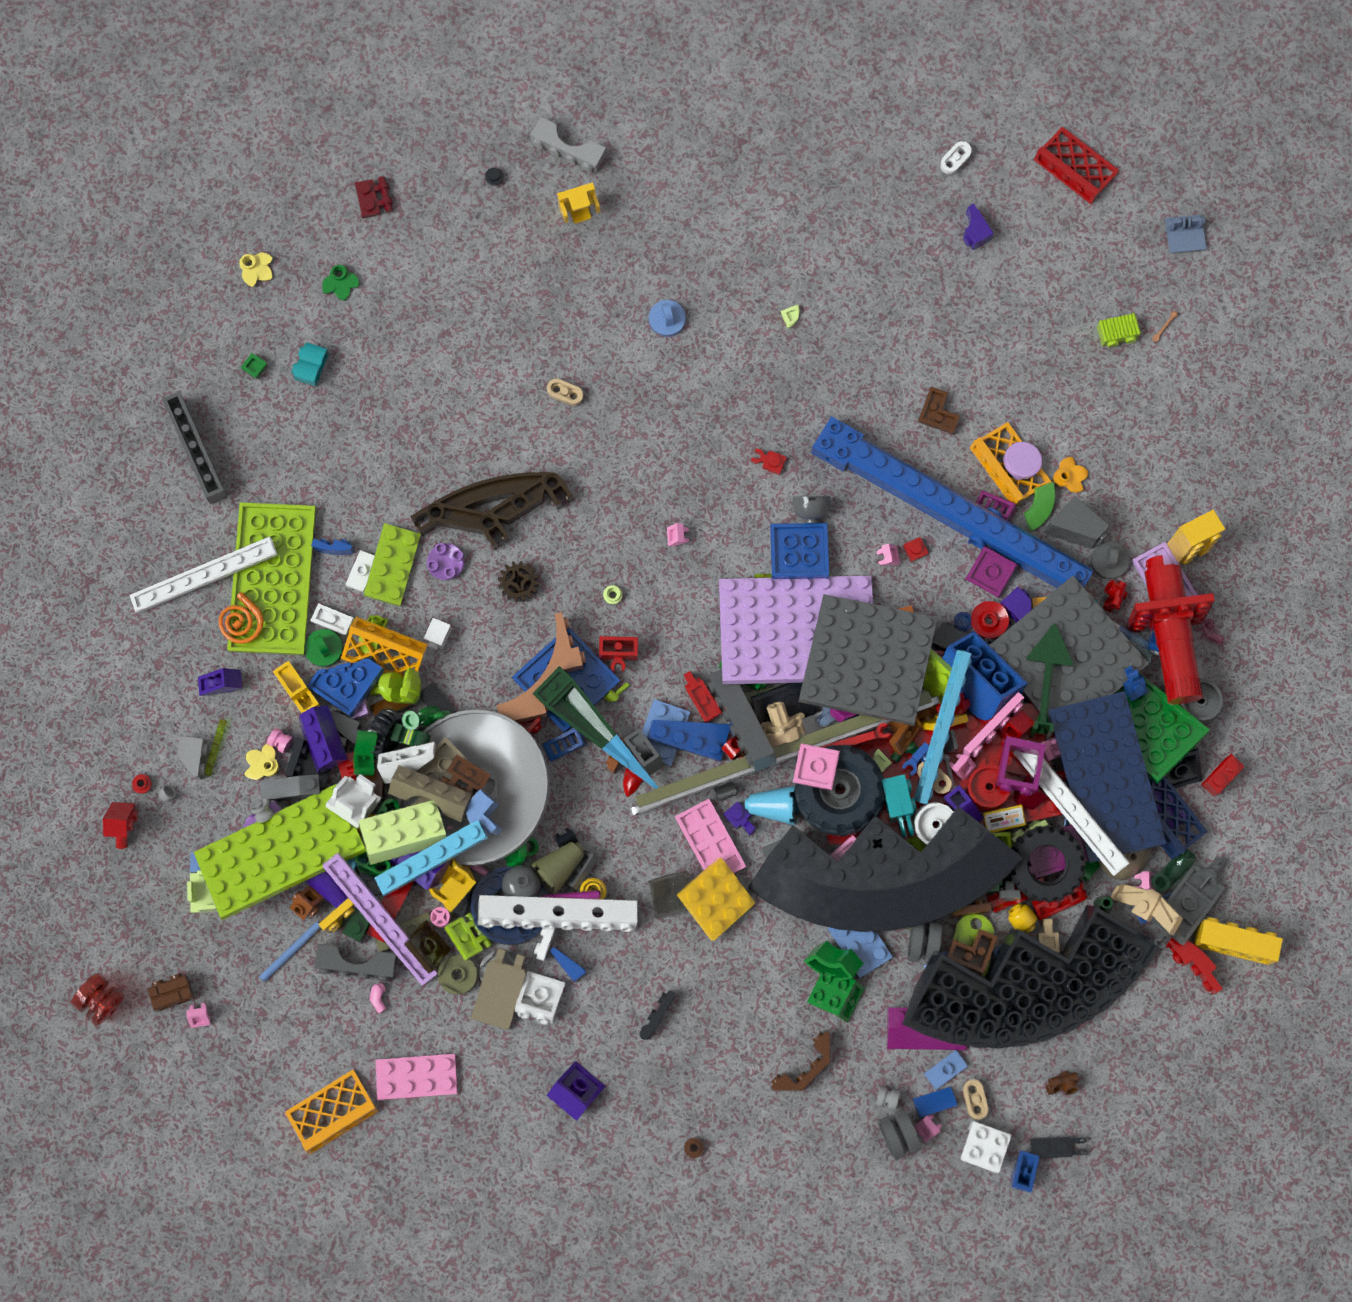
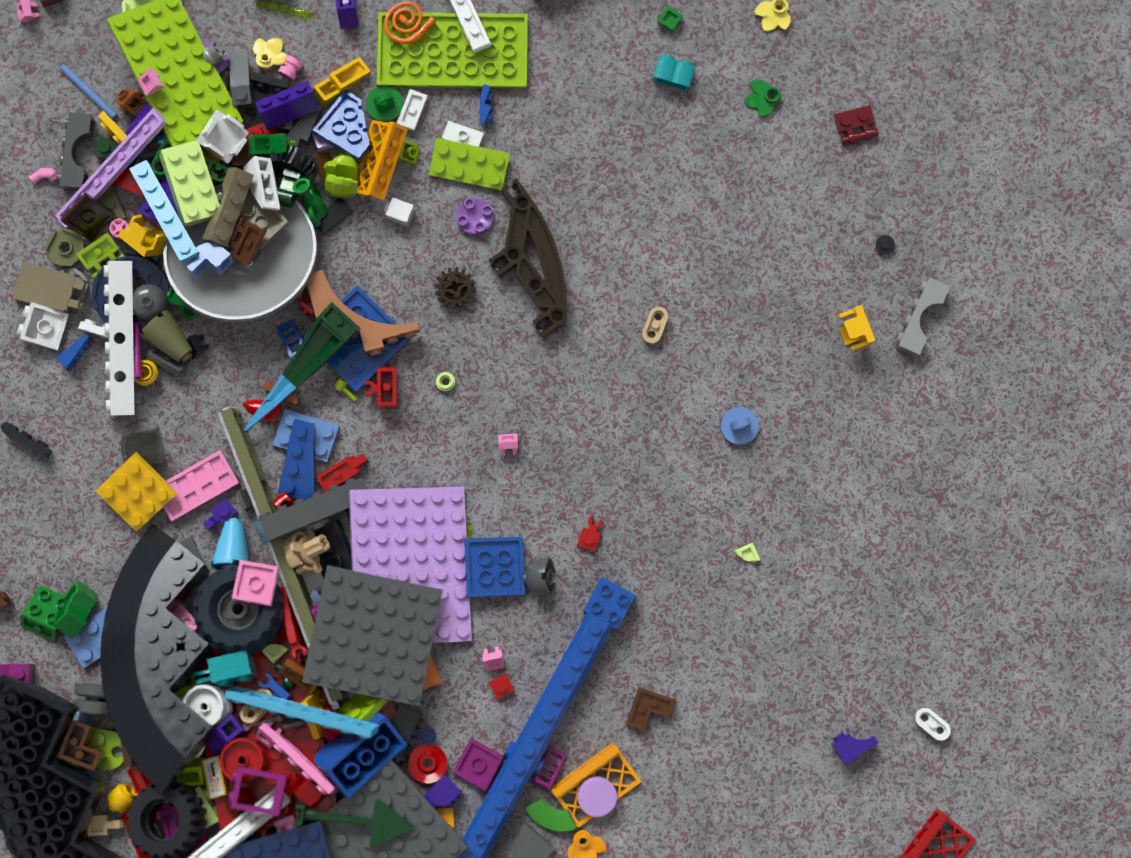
camera: 90 degrees right, 5 degrees up
(294, 868) = (150, 82): none -> bright pink tile
(644, 752) = (280, 416): dark grey arch -> none
(1009, 893) = (139, 782): dark grey tile -> none

